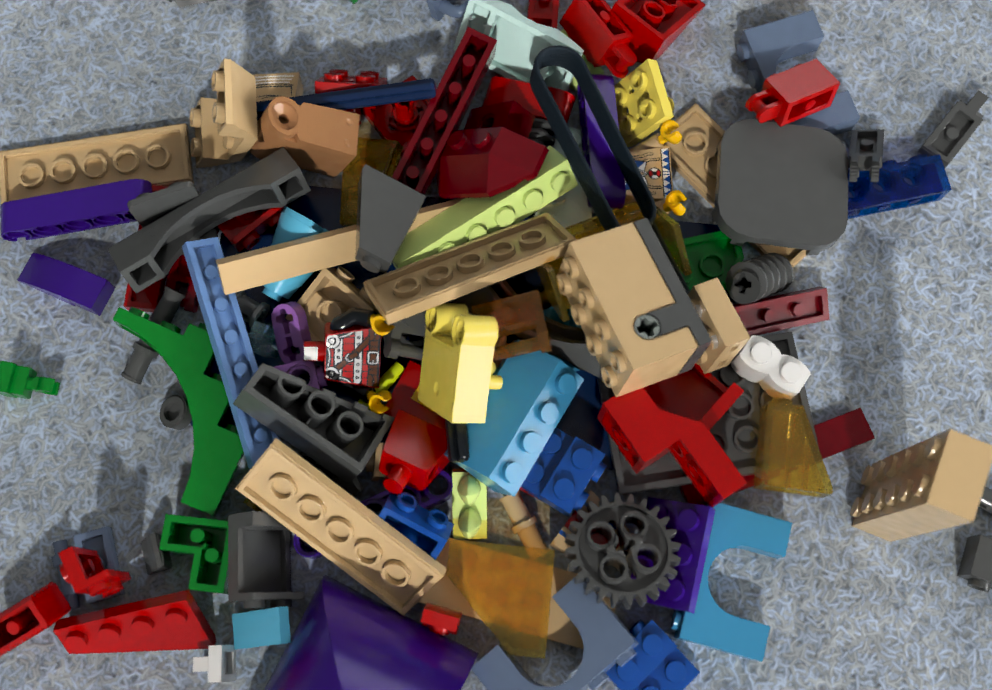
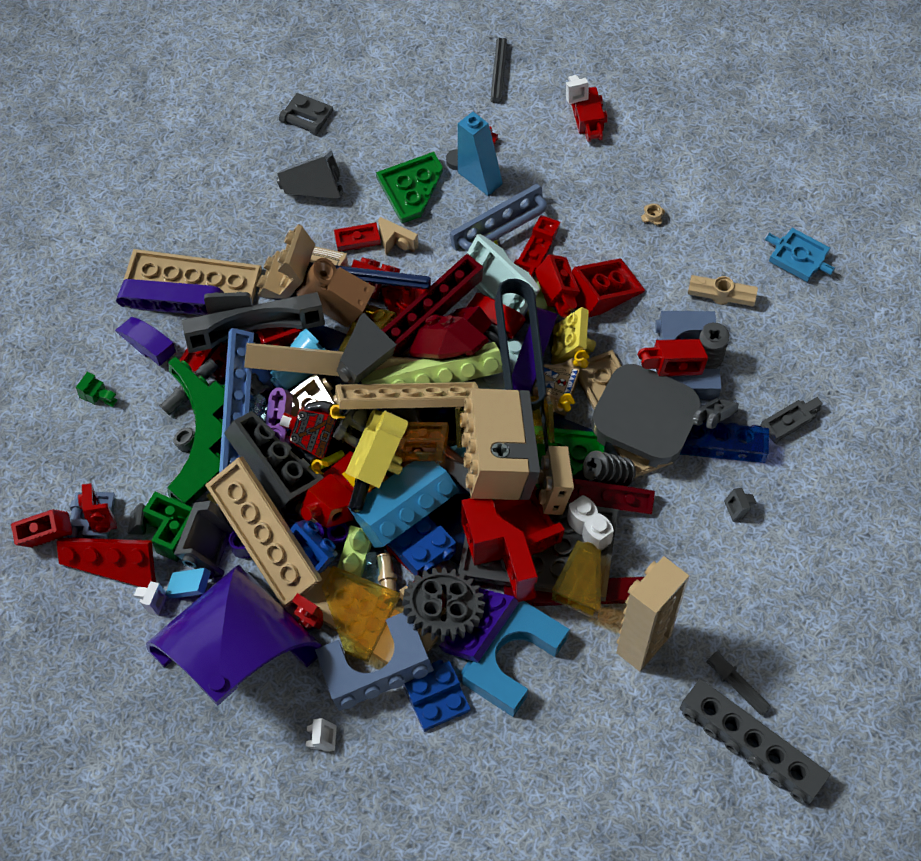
camera: 20 degrees right, 15 degrees down
(301, 42) = (357, 237): none -> red plate
(347, 23) = (395, 234): none -> tan slope
(499, 518) = (371, 561): none -> clear light blue tile
(834, 51) = (715, 341): none -> dark grey piece
(934, 270) = (739, 503): none -> dark grey tile

